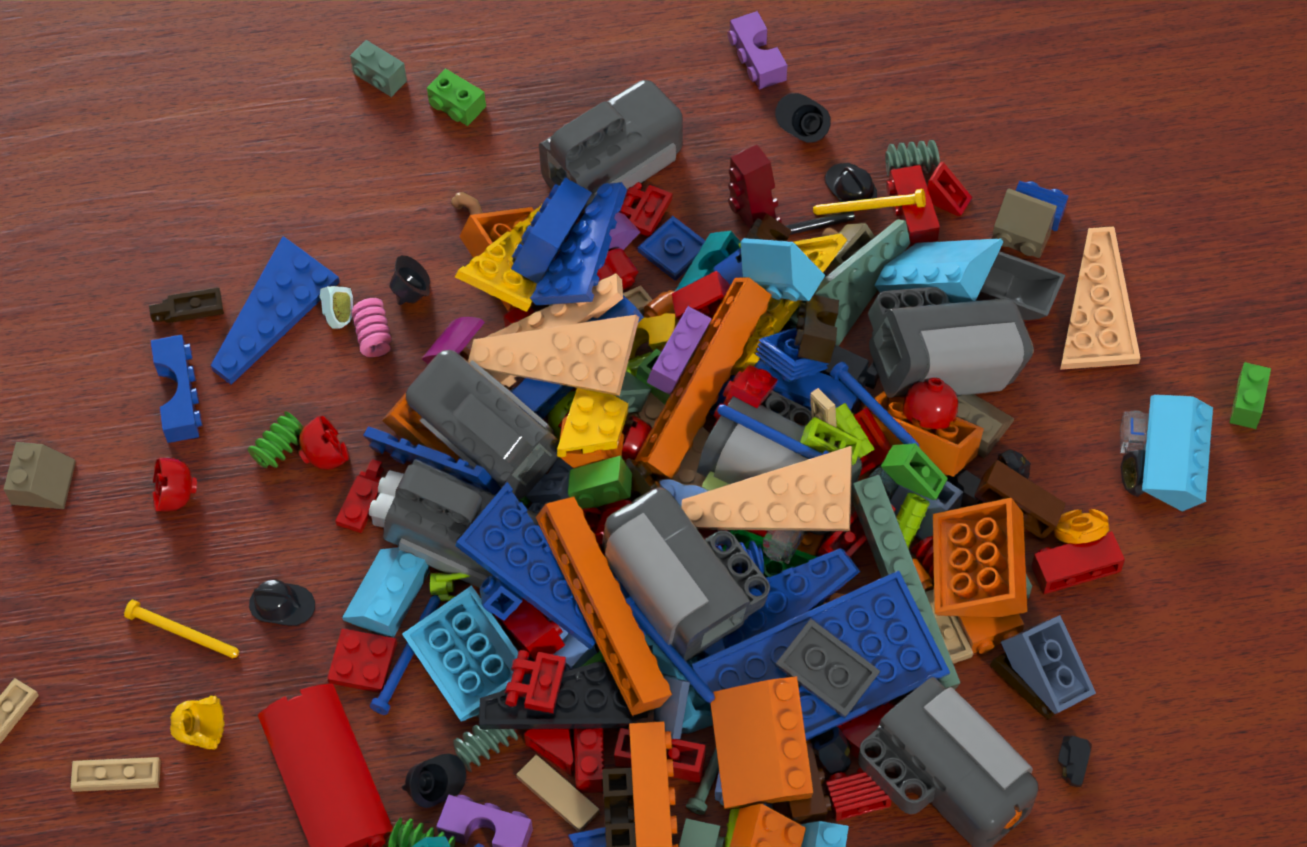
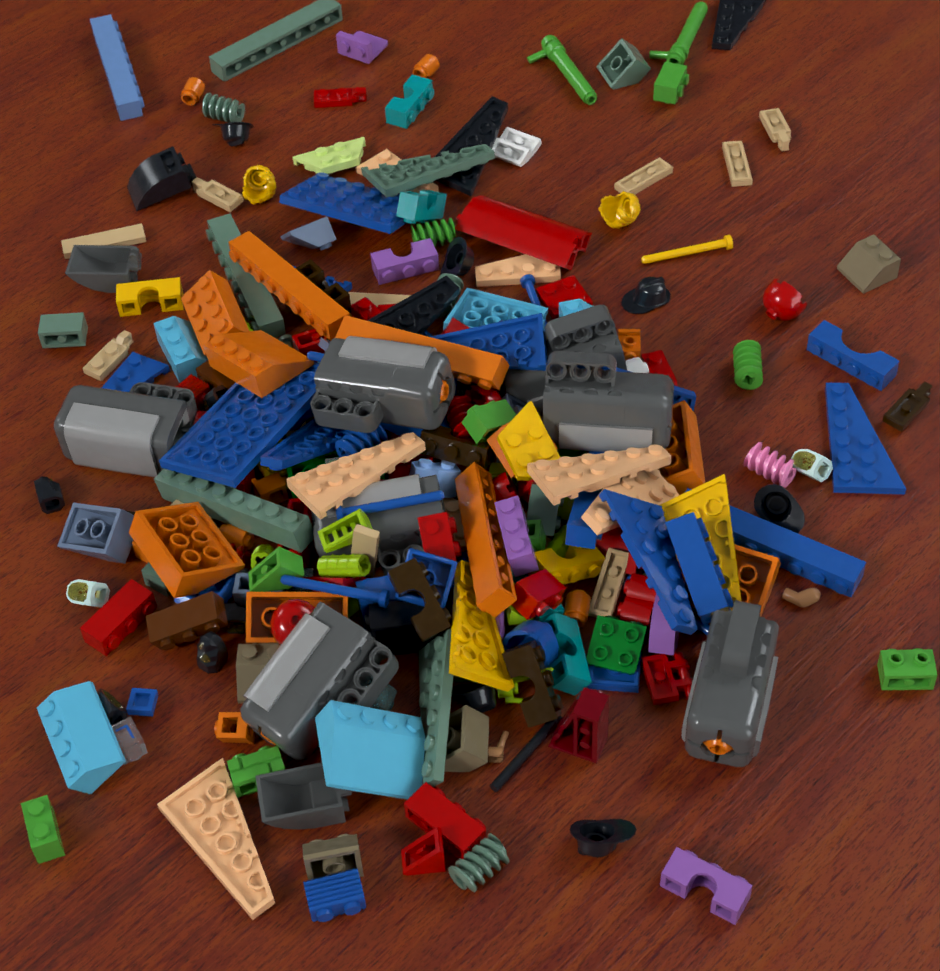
camera: 145 degrees right, 10 degrees down
(321, 445) = (714, 377): red cylinder -> none
(362, 550) = (630, 342): none -> orange brick
(383, 736) = (512, 269): none -> light nougat wing
(445, 252) = (798, 553): none -> blue brick
(454, 337) = (691, 463): magenta slope -> none
(544, 682) = (424, 309): red plate -> none
(657, 252) = (616, 644): none -> green bracket
(780, 269) = (481, 618): medium azure slope -> none
(827, 668) = (242, 407): dark grey plate -> none
(850, 183) = (517, 816): black piece -> none
(917, 198) = (436, 805): yellow bar -> none
(1034, 383) = (225, 727): none -> orange brick
(1047, 337) = (245, 767): none -> bright green brick
(1081, 527) = (128, 638): light orange tile -> none
(1095, 609) = (88, 593): none -> light aqua rock
(1101, 464) = (142, 702): none -> blue plate

